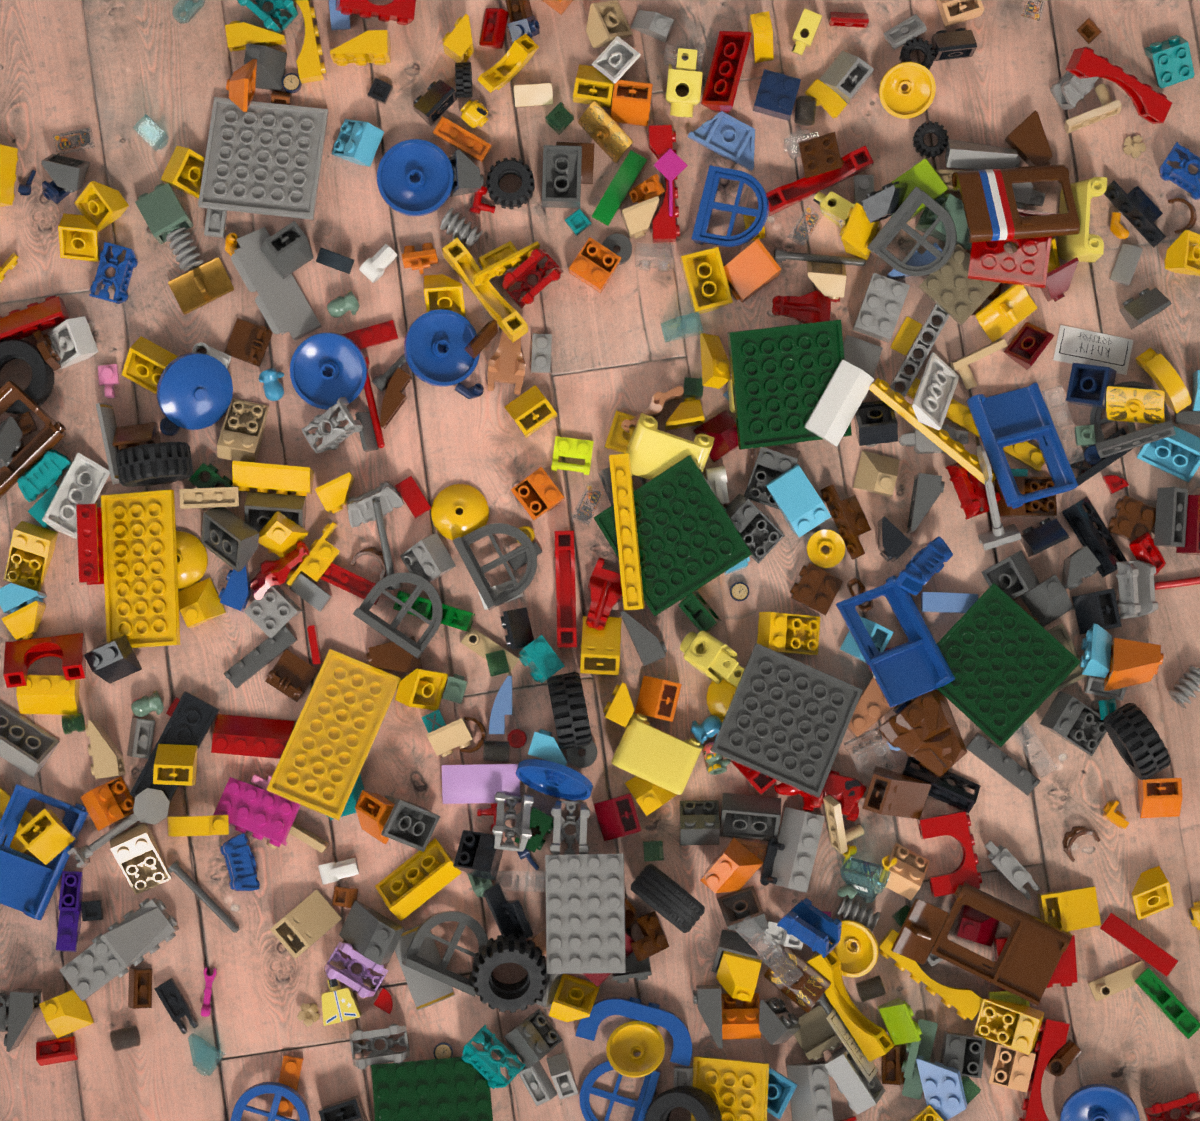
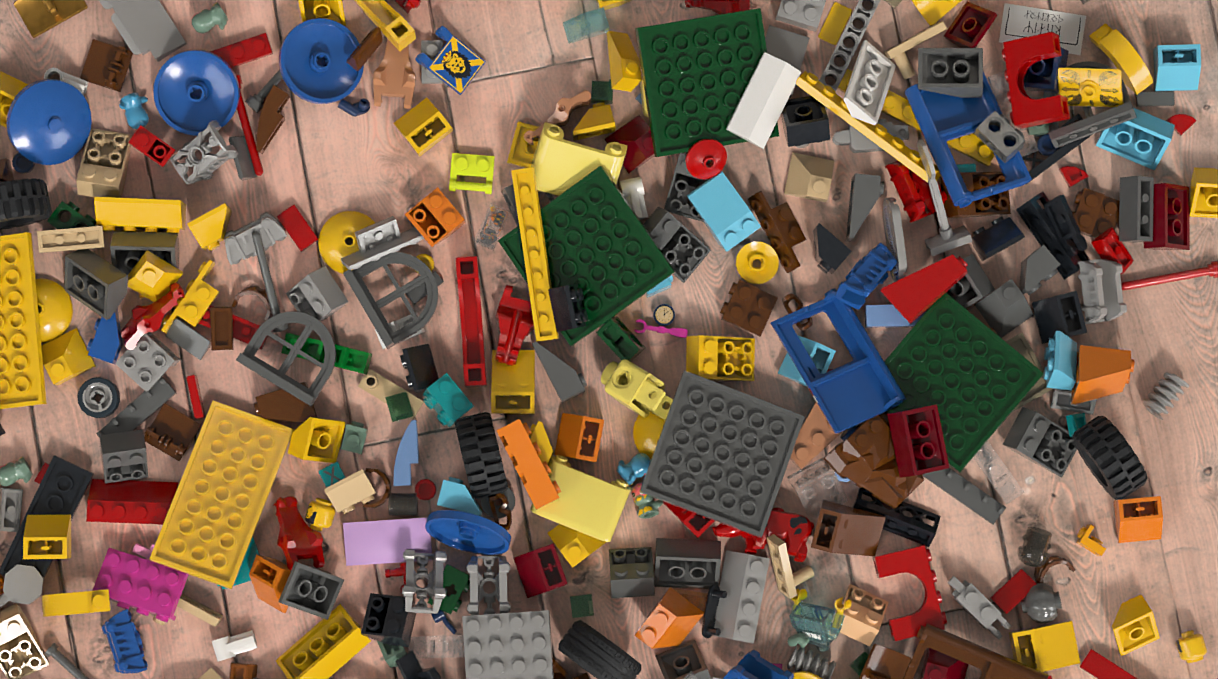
camera: 10 degrees left, 0 degrees up
(235, 647) = (107, 404): none -> wheel
(247, 695) = (124, 456): none -> dark grey slope
(286, 417) = (151, 146): none -> red slope
(341, 584) = (221, 328): none -> reddish brown tile
(399, 775) = (296, 536): none -> red animal
(421, 756) = (320, 514): none -> yellow head
(487, 512) = (379, 241): none -> light grey bracket
(562, 354) = (454, 63): none -> flag
(586, 760) = (502, 509): none -> reddish brown helmet
(611, 720) = (528, 464): none -> orange wedge
(654, 581) = (568, 307): none -> black slope
(749, 607) = (677, 332): none -> dark pink piece
(780, 448) = (702, 152): none -> red dish
(951, 532) = (894, 237): none -> light grey tile
(964, 717) = (918, 441): none -> dark red slope
(974, 580) = (924, 287): none -> red slope
(1010, 384) = (951, 71): none -> dark grey slope
(1043, 857) = (1013, 591): none -> red slope
(1047, 448) = (996, 140): none -> dark grey brick
(1065, 818) = (1035, 547): none -> clear smoke piece
(1068, 869) = (1042, 603): none -> dark grey plant
(1072, 374) = (1019, 57): none -> red arch
(1106, 528) = (1065, 225): none -> black hinge

